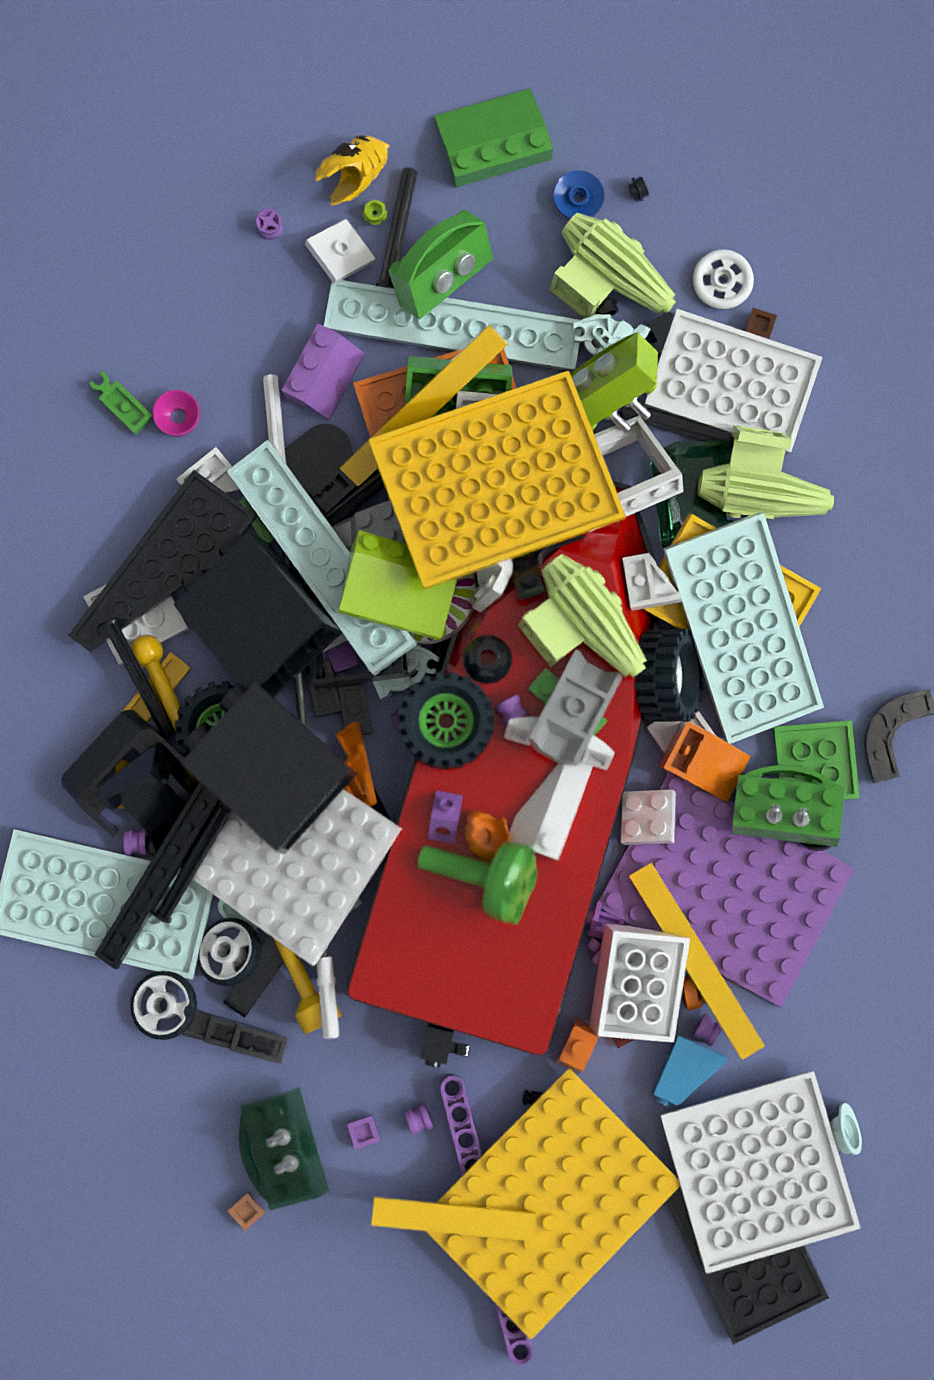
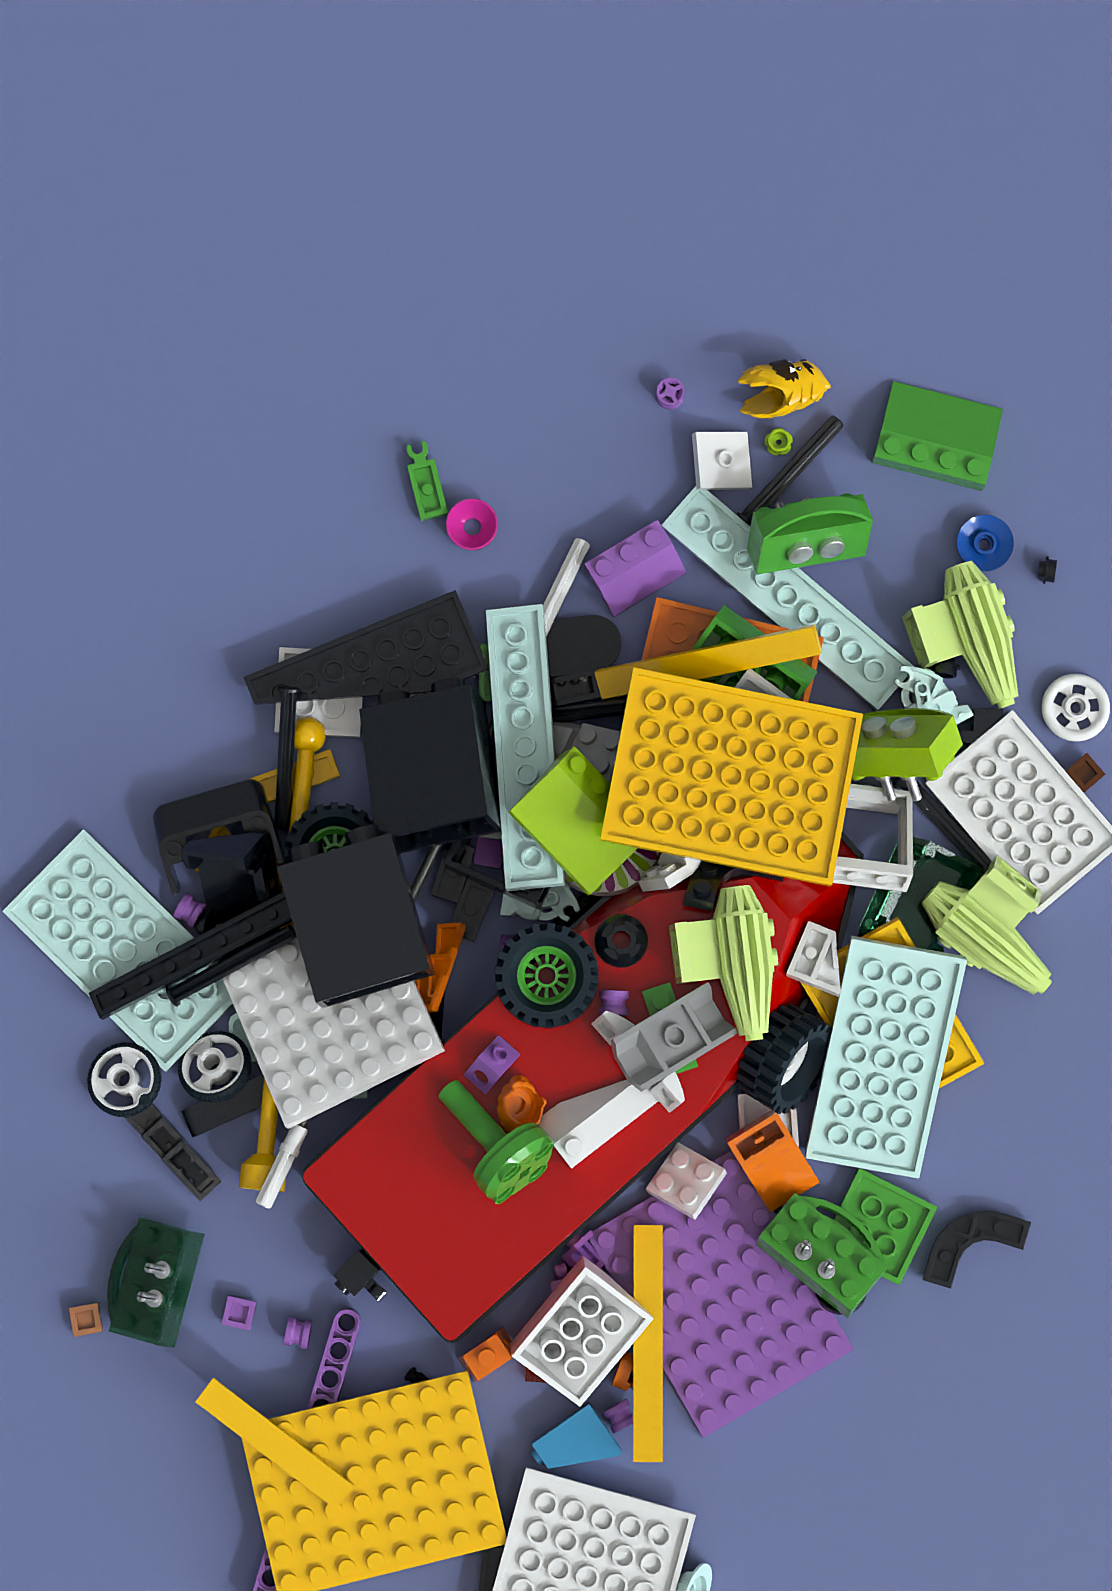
camera: 35 degrees right, 0 degrees up
(213, 468) = (475, 598): white wing -> none

